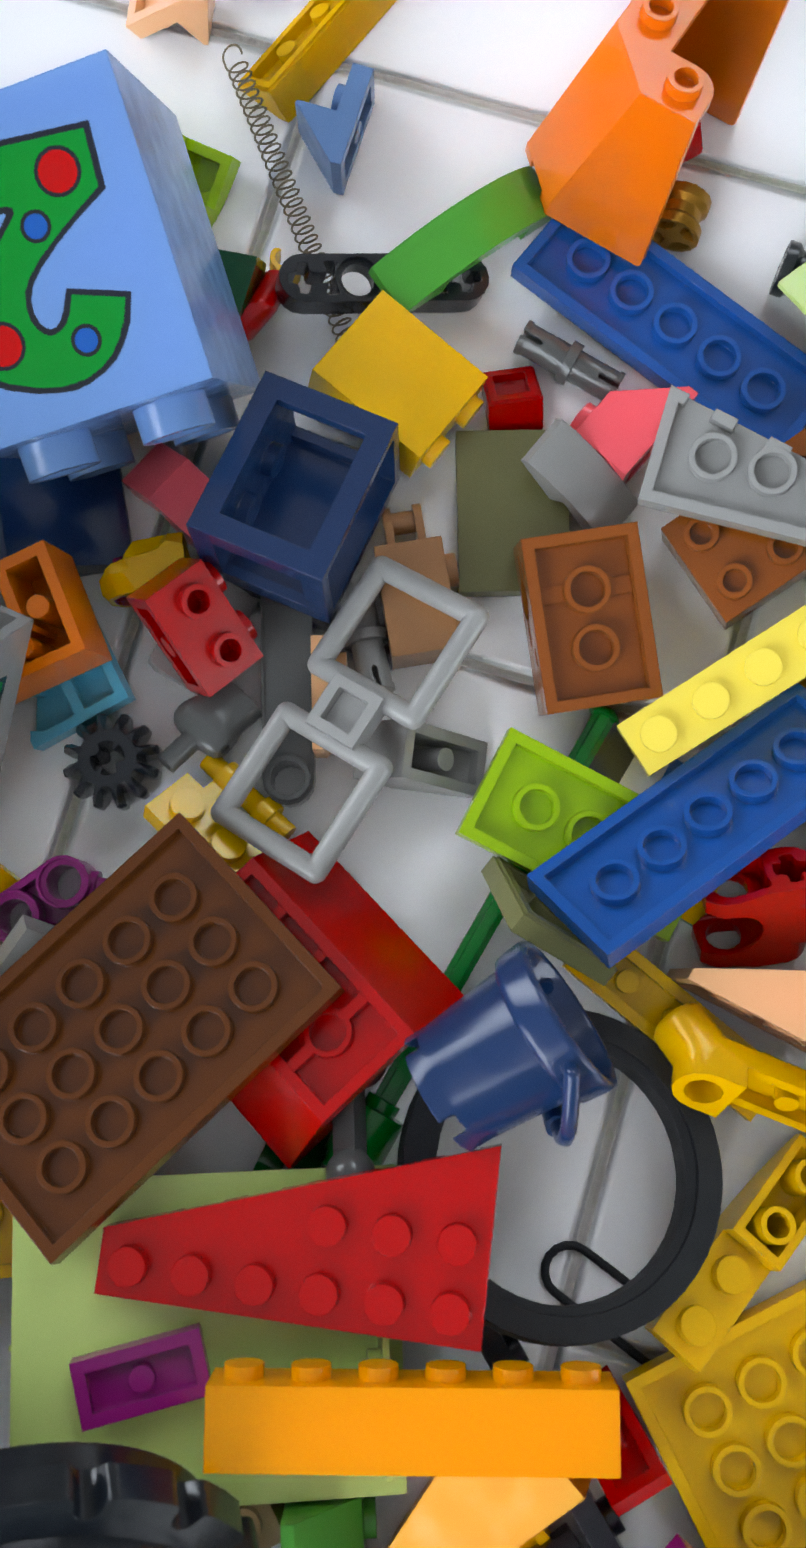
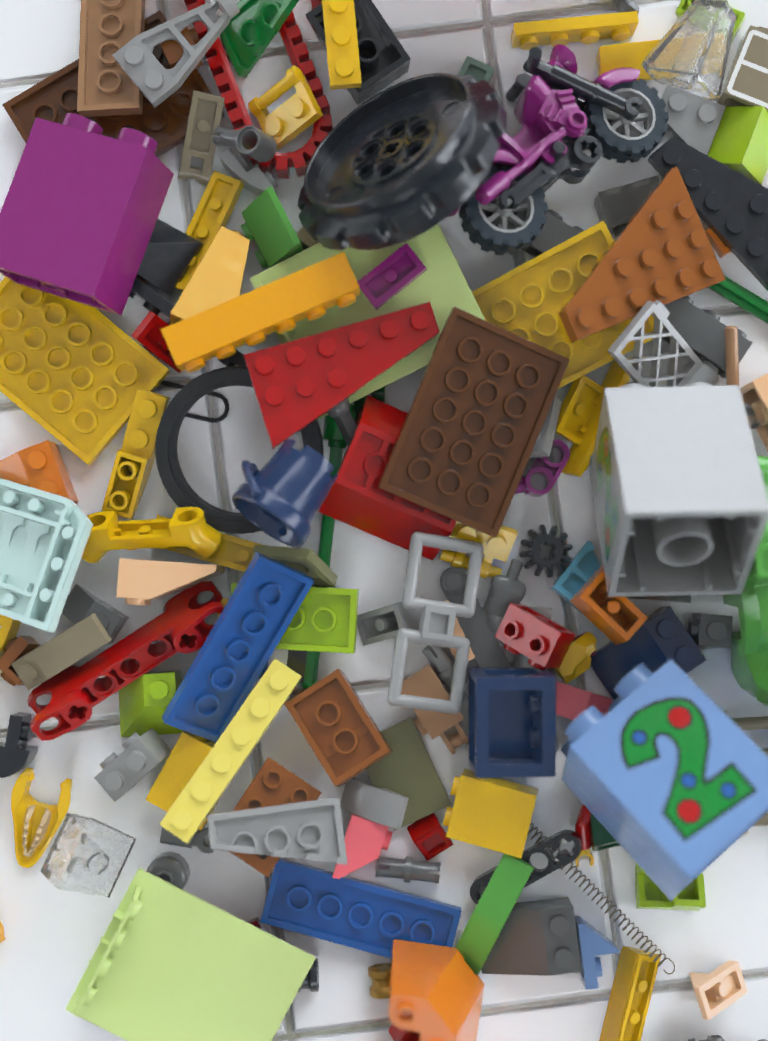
camera: 160 degrees right, 5 degrees up
(408, 170) = (537, 940): none -> dark grey slope

